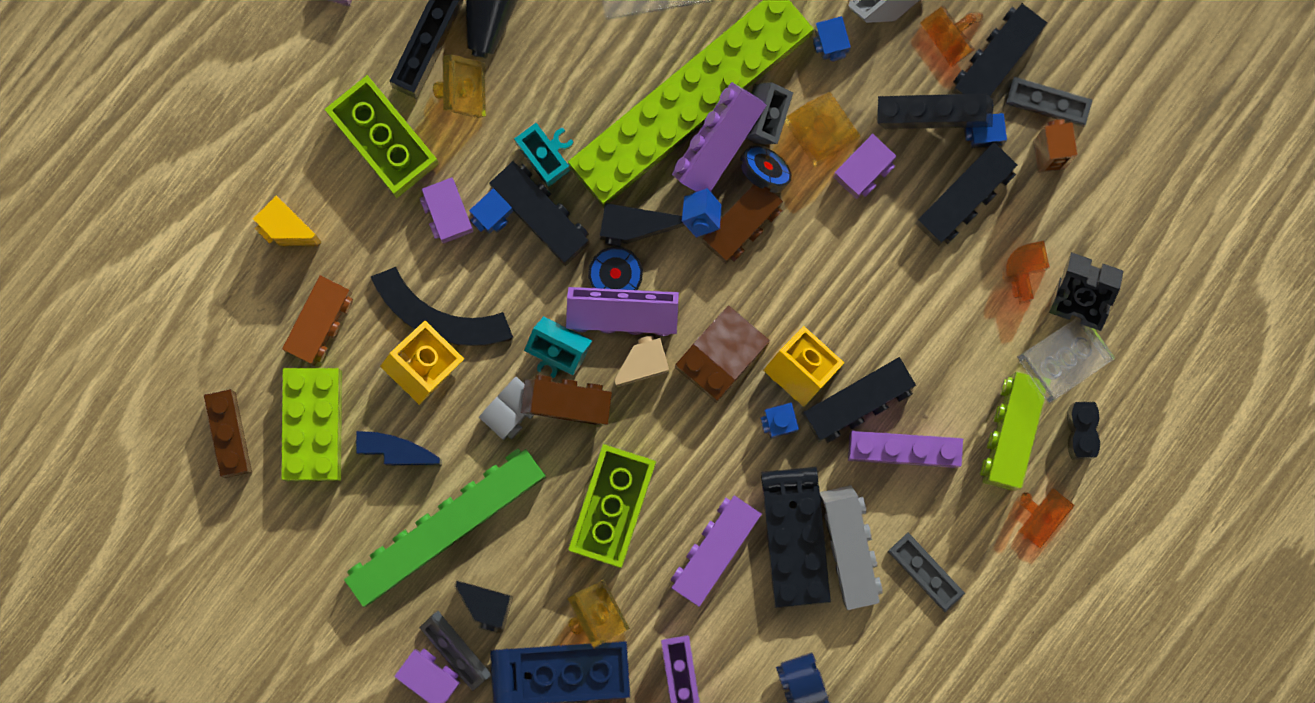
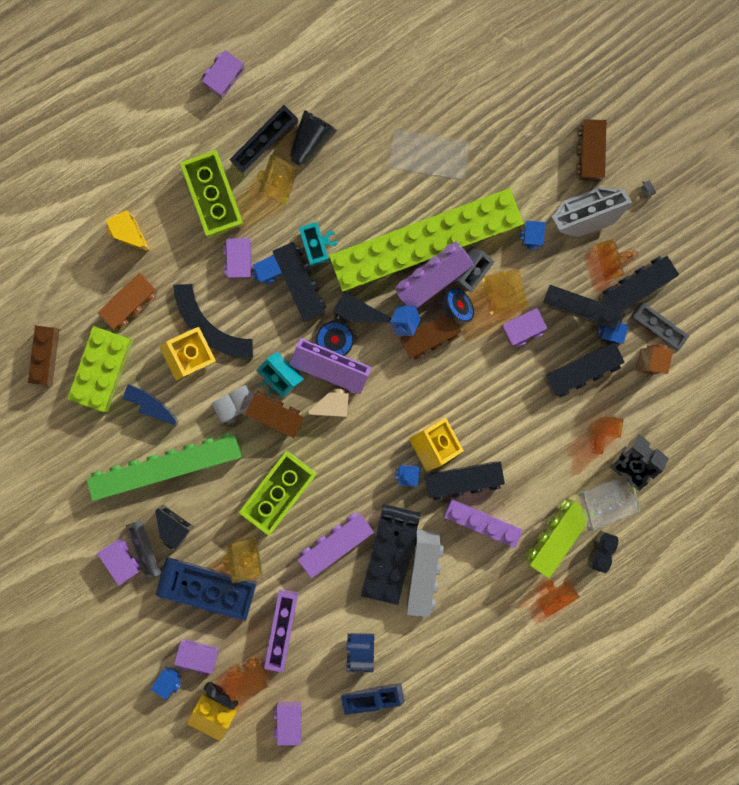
camera: 20 degrees right, 5 degrees up
(722, 353) = (386, 417): reddish brown slope -> none
(926, 572) = (467, 605): dark grey tile -> none

